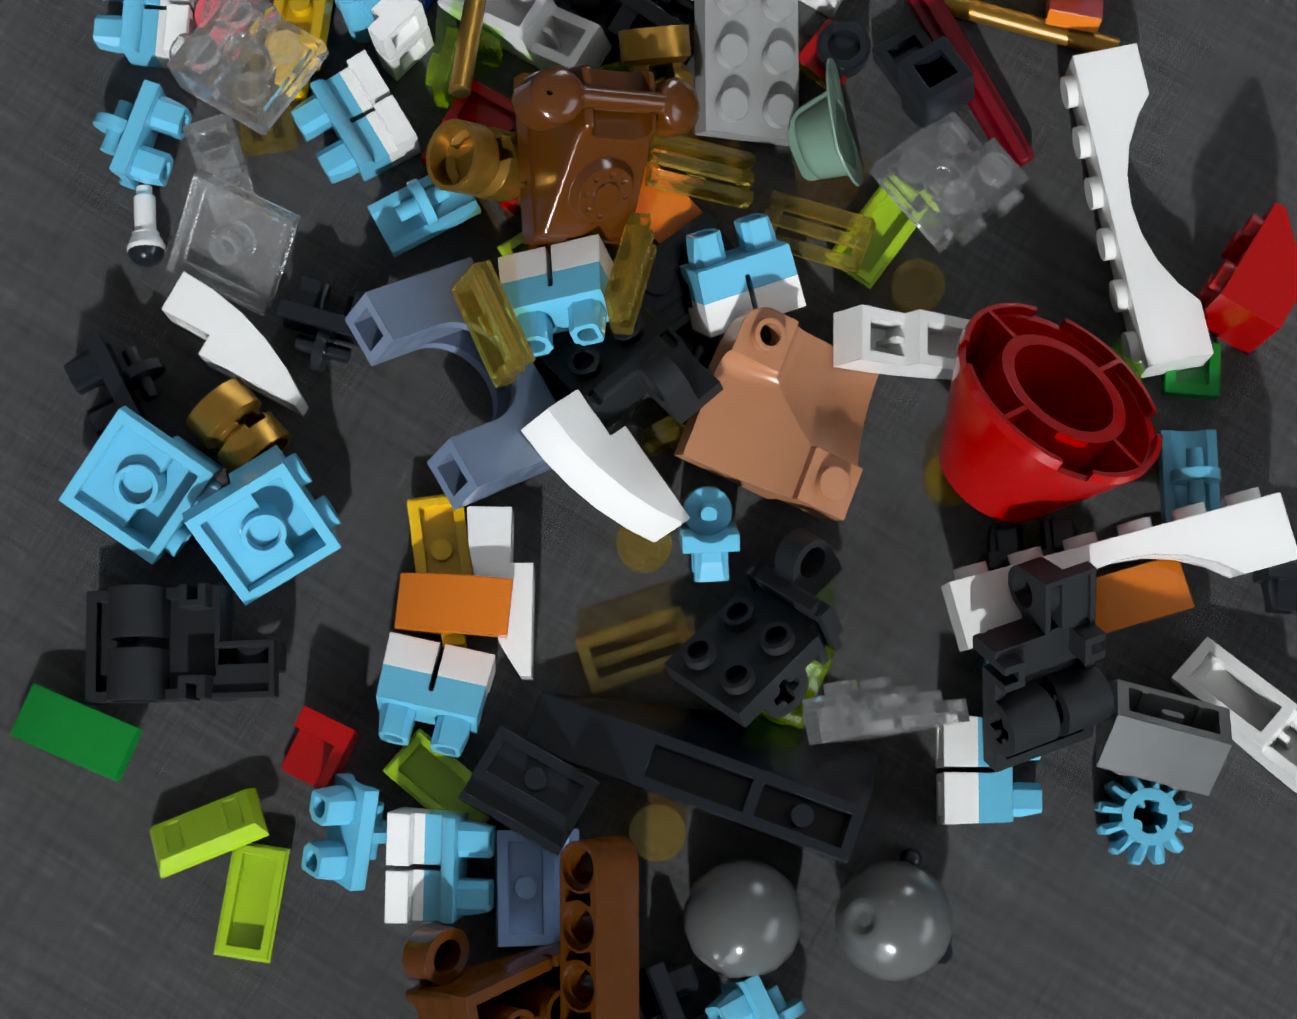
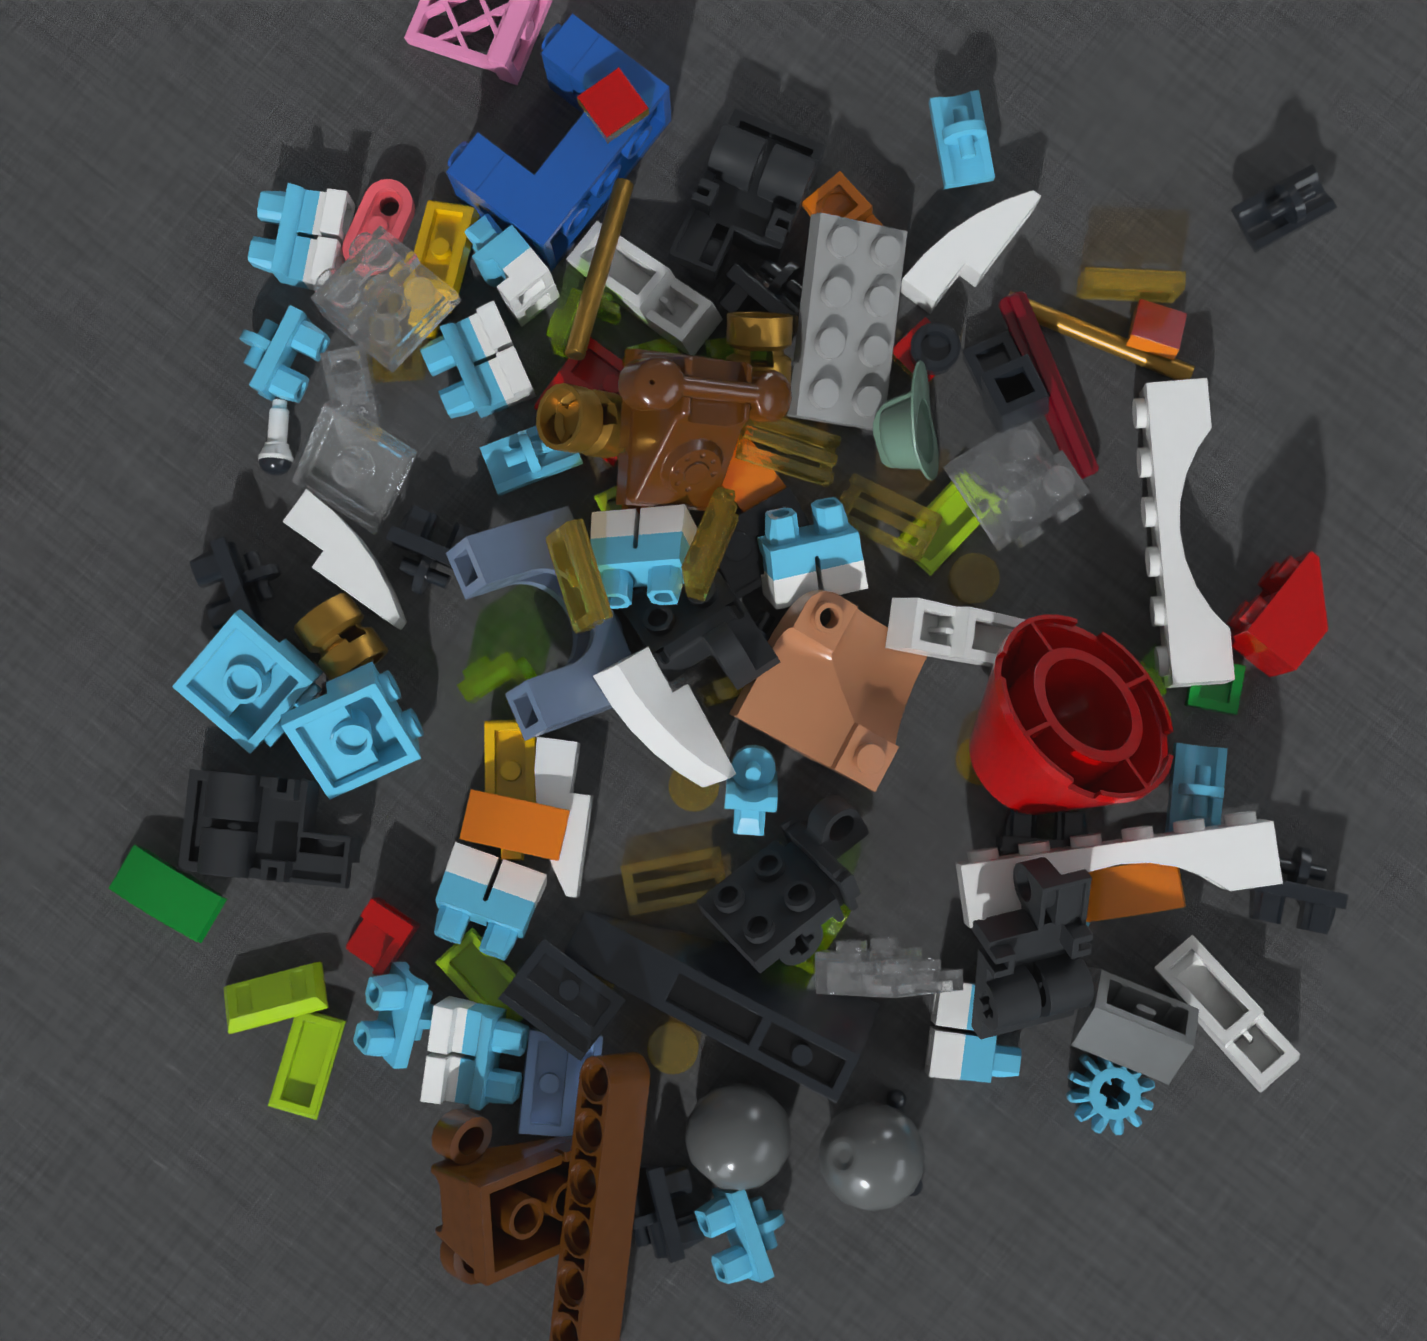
camera: 15 degrees right, 5 degrees up
(404, 451) = (486, 676): none -> clear neon green bracket

